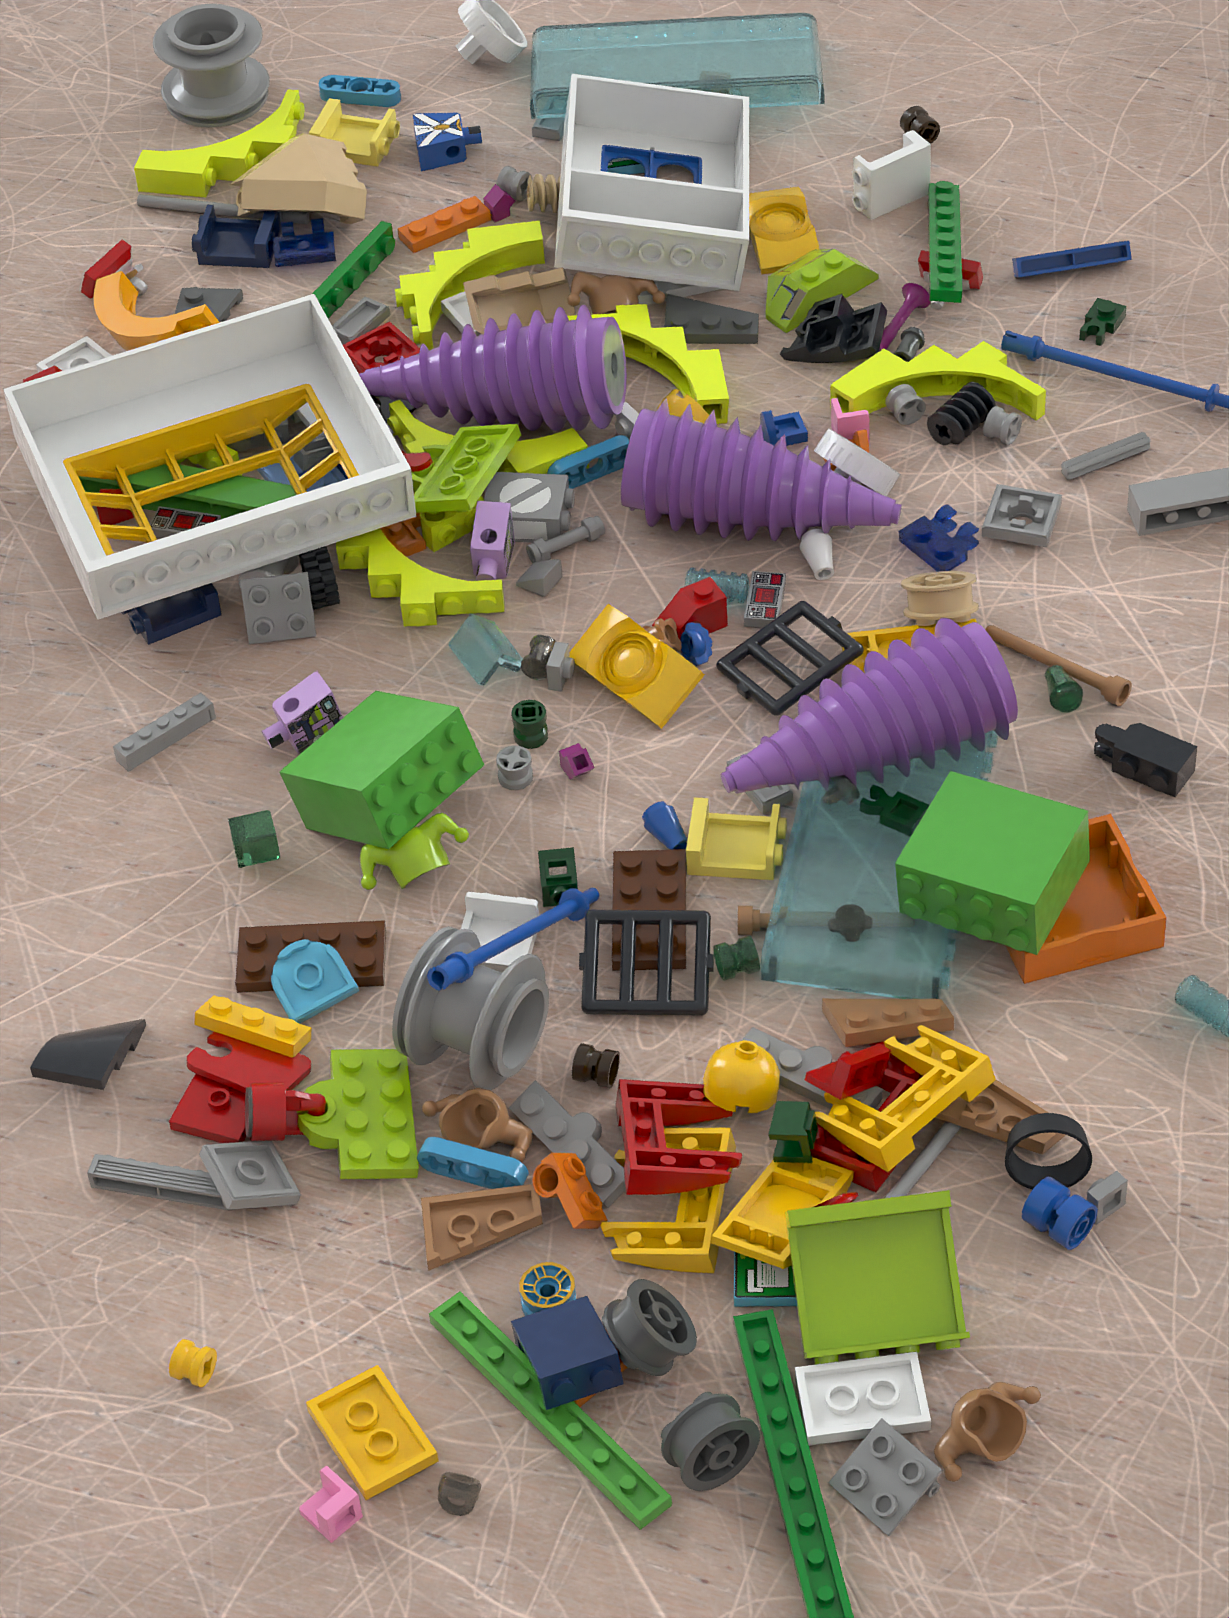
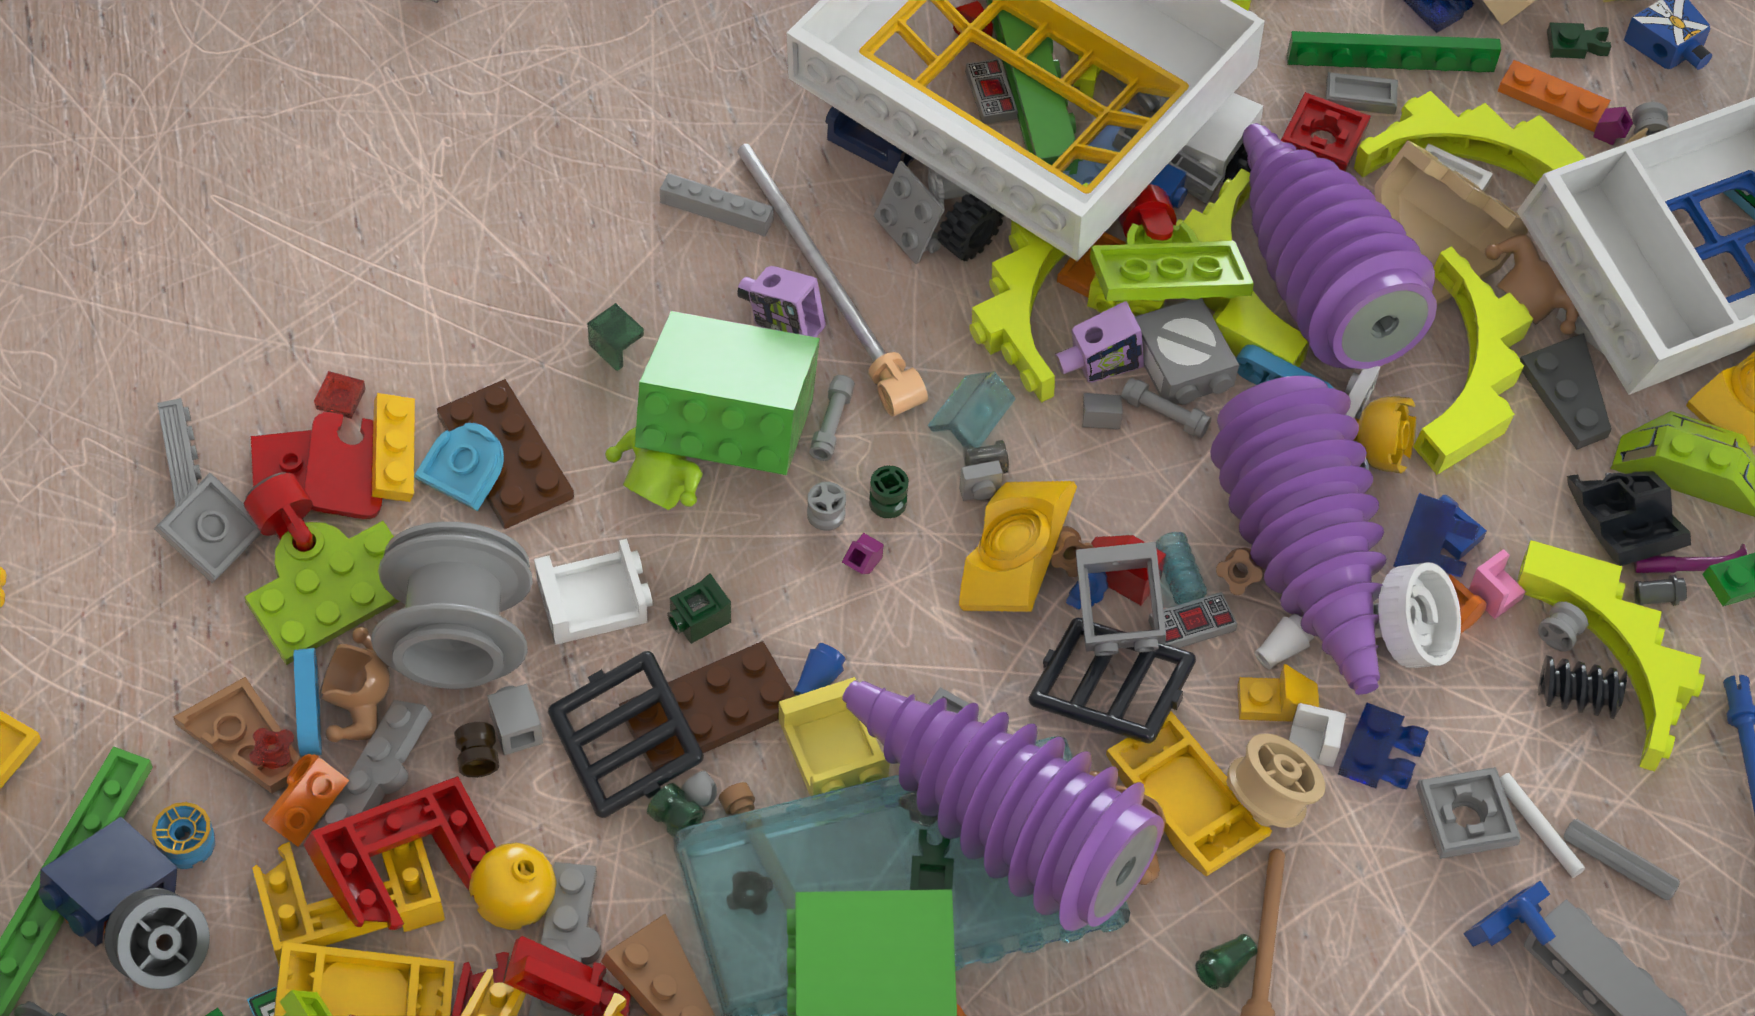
camera: 55 degrees right, 10 degrees up
(87, 1055) = (294, 332): black slope -> none
(171, 1044) = (339, 394): none -> clear red plate
(404, 194) = (1573, 41): none -> dark green plate
(436, 682) = (896, 388): none -> flat silver piece
(460, 966) = (450, 565): blue bar -> none
(510, 1203) = (271, 758): none -> clear red plate
(581, 1025) = (515, 719): none -> light grey brick
(725, 933) = (700, 789): none -> light grey hinge
(743, 549) = (1236, 579): none -> medium nougat brick
(747, 589) = (1114, 559): none -> light grey window
(781, 421) = (1427, 534): none -> clear blue plate
(795, 1130) = (457, 958): dark green window -> none
(860, 580) = (1275, 697): none -> yellow slope
(905, 561) = (1318, 732): none -> white panel
(1002, 425) = (1593, 734): light grey wheel -> none
(1061, 485) = (1541, 826): none -> white bar
(1116, 524) = (1522, 907): none -> blue plate

